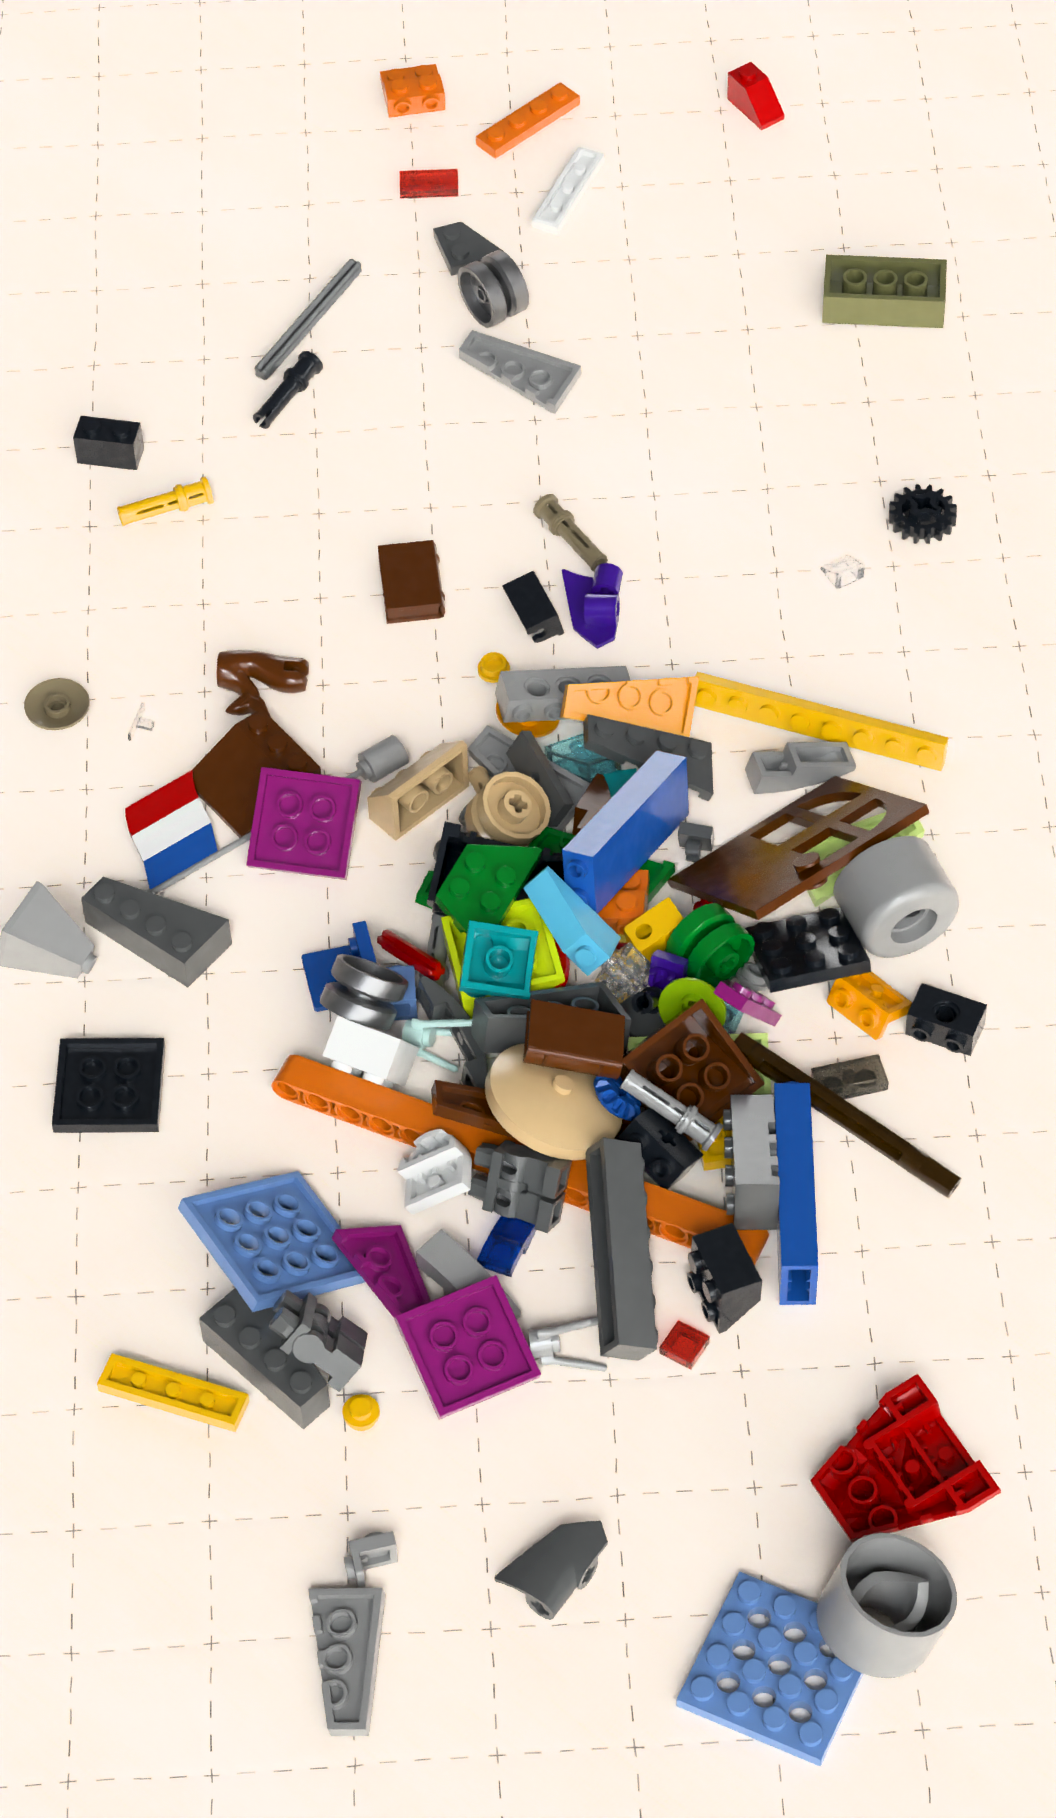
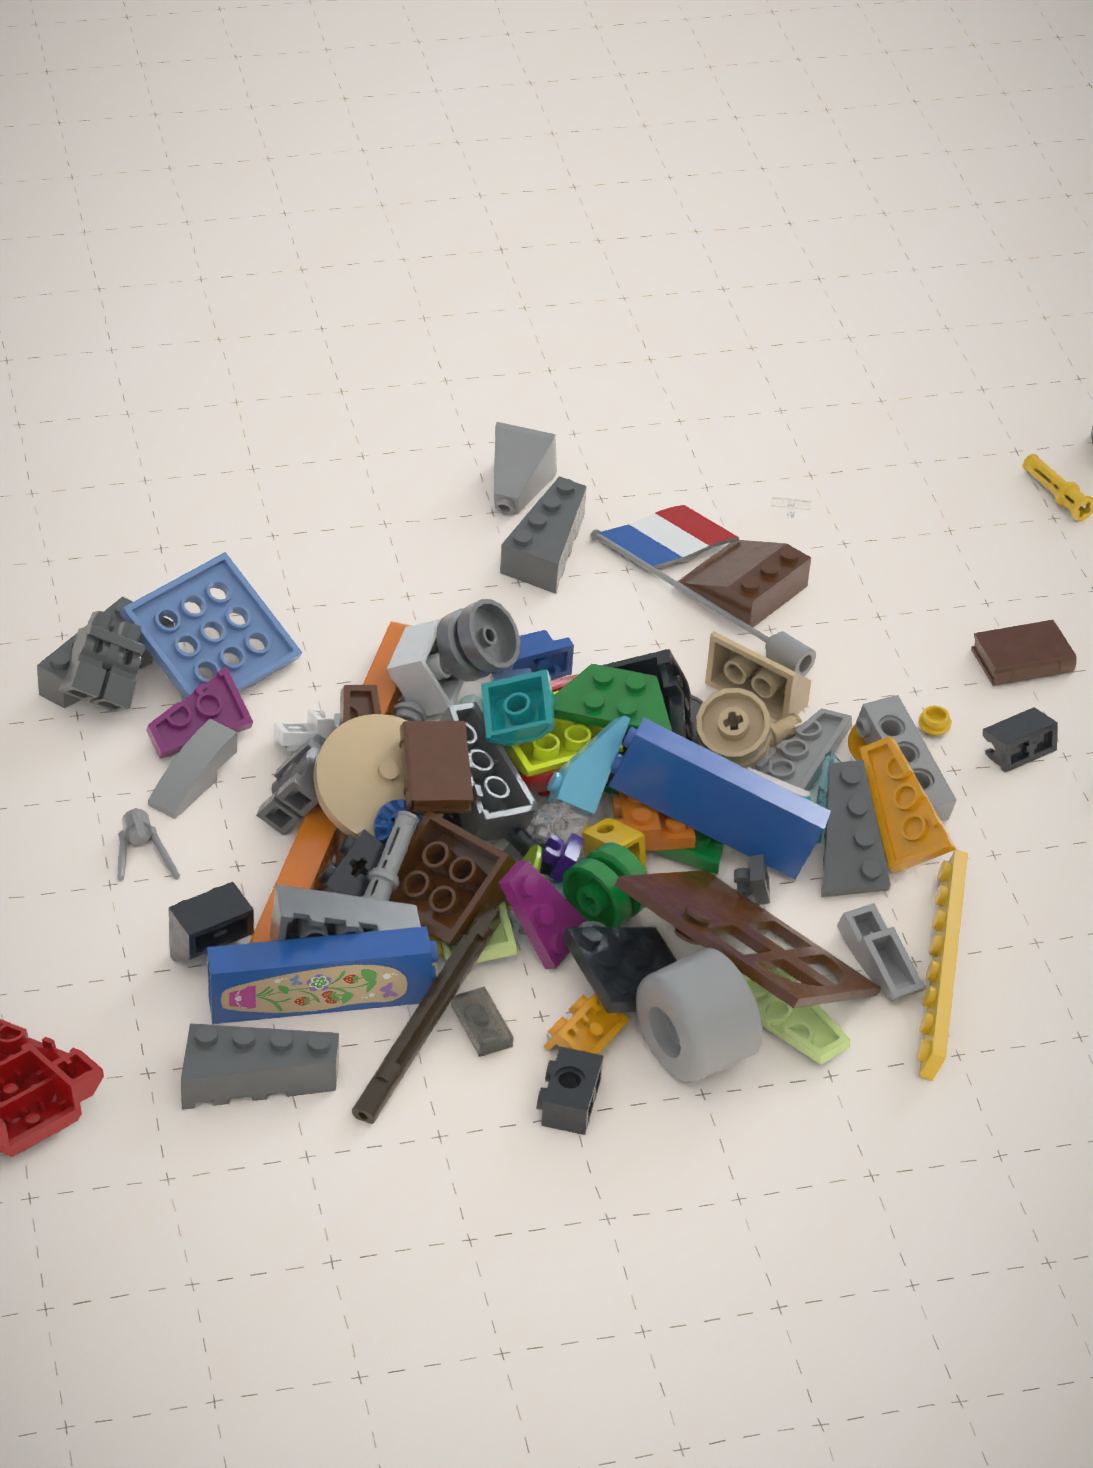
camera: 75 degrees right, 10 degrees down
(56, 704) = (787, 448): dark tan dish -> none
(108, 1085) = (376, 532): black plate -> none
(173, 1392) = (61, 606): yellow plate -> none
(272, 670) = (876, 572): reddish brown piece -> none
(304, 823) = (687, 603): magenta plate -> none
(361, 1412) = (53, 722): yellow plate -> none
(414, 1085) = (409, 711): none -> light grey plate
(467, 1347) = (119, 770): magenta plate -> none
(505, 1245) = (239, 789): clear blue slope -> none
(531, 761) = (791, 750): dark grey tile -> none
(594, 603) = (1048, 784): dark purple panel -> none
(621, 1249) = (227, 850): dark grey brick -> none
(684, 1345) = (148, 928): clear red tile -> none
(891, 1273) = (256, 1063): none -> dark grey wedge

